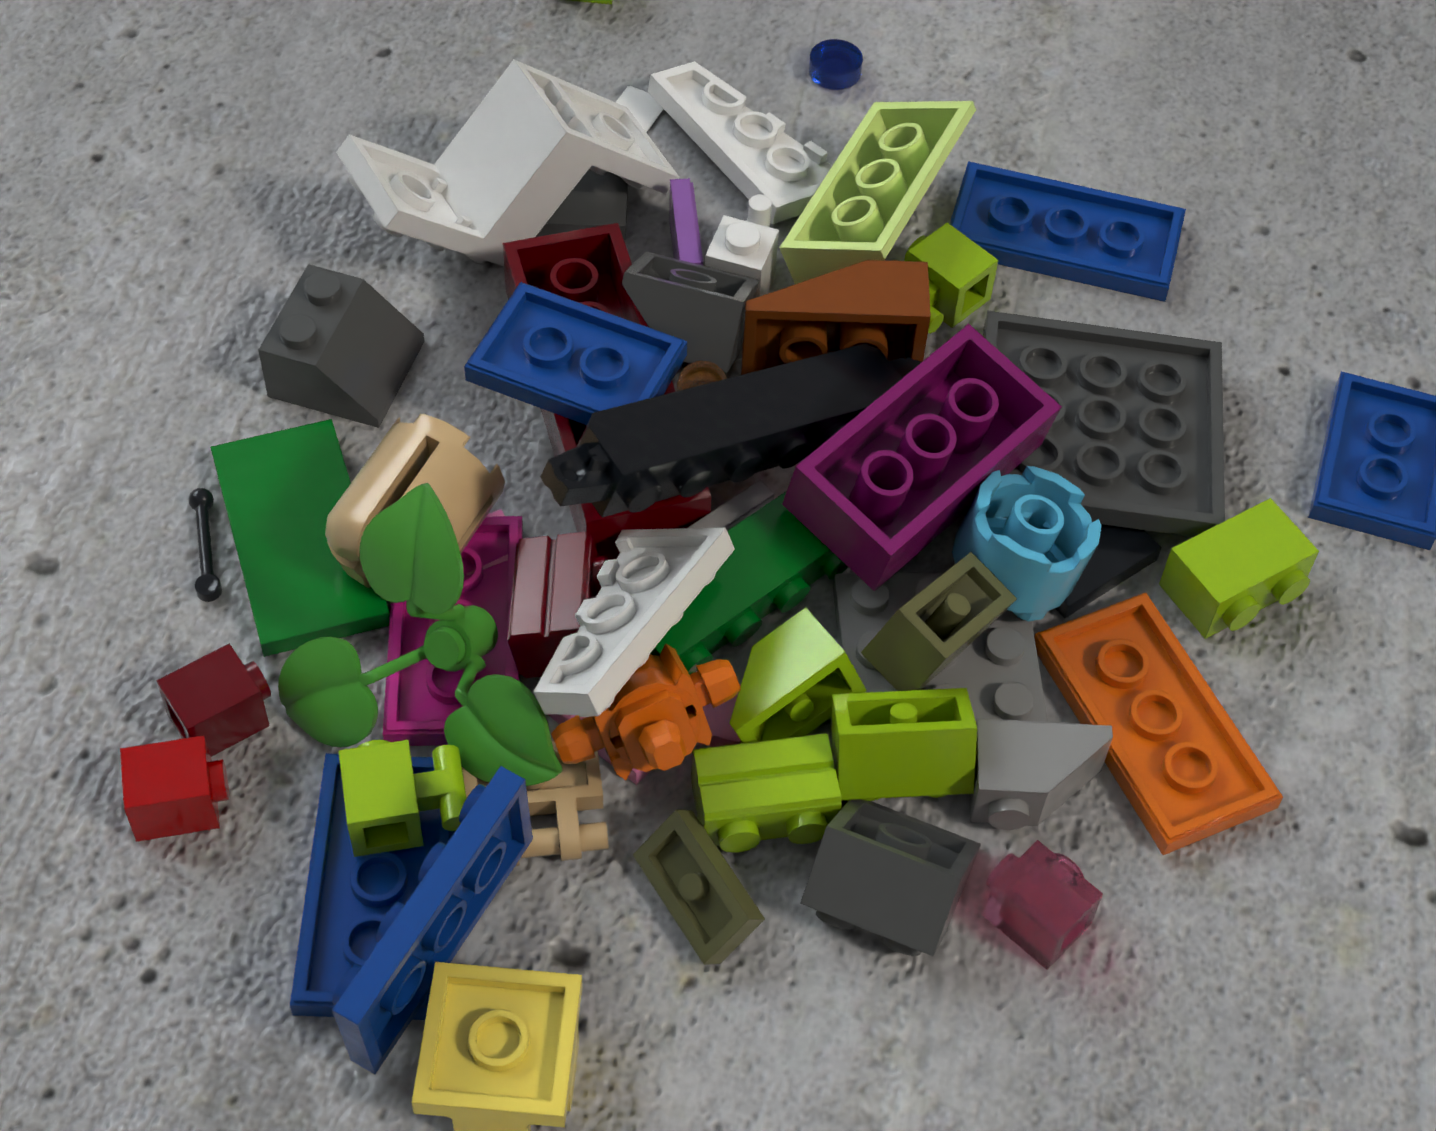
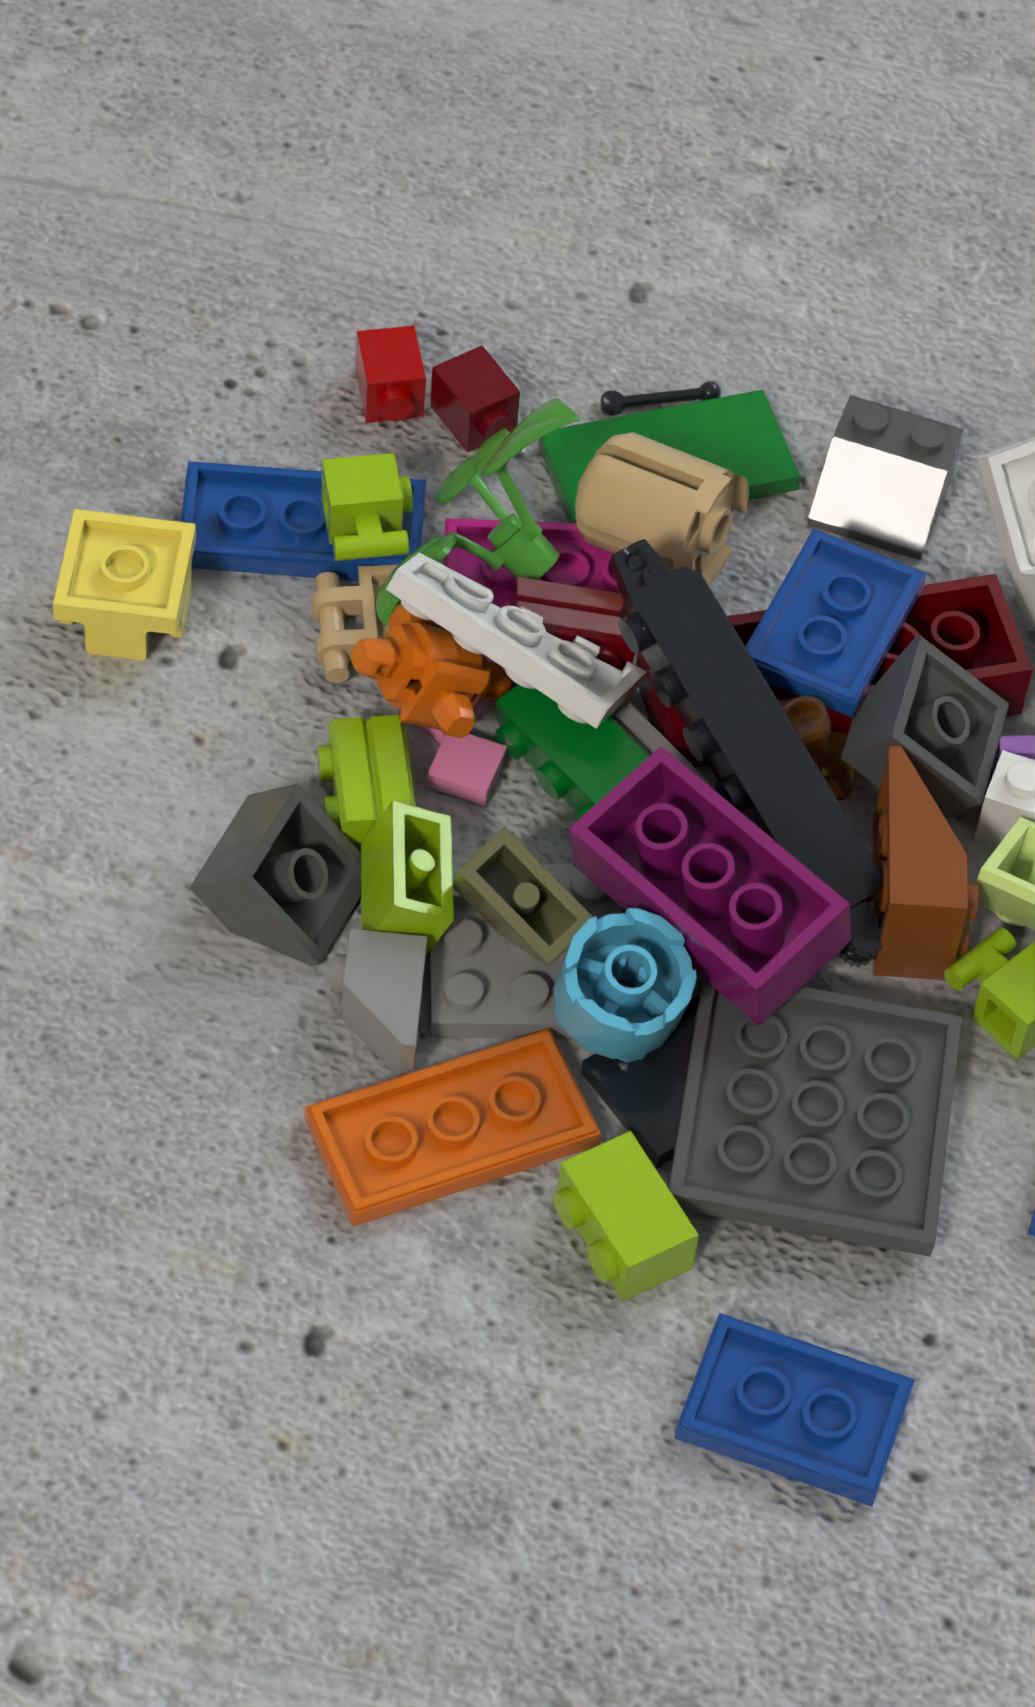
camera: 90 degrees right, 0 degrees up
(454, 891) = (235, 516): blue plate -> none
(698, 887) = (299, 724): olive plate -> none
(792, 681) = (479, 800): lime slope -> none
(1041, 902) = (243, 987): clear pink brick -> none

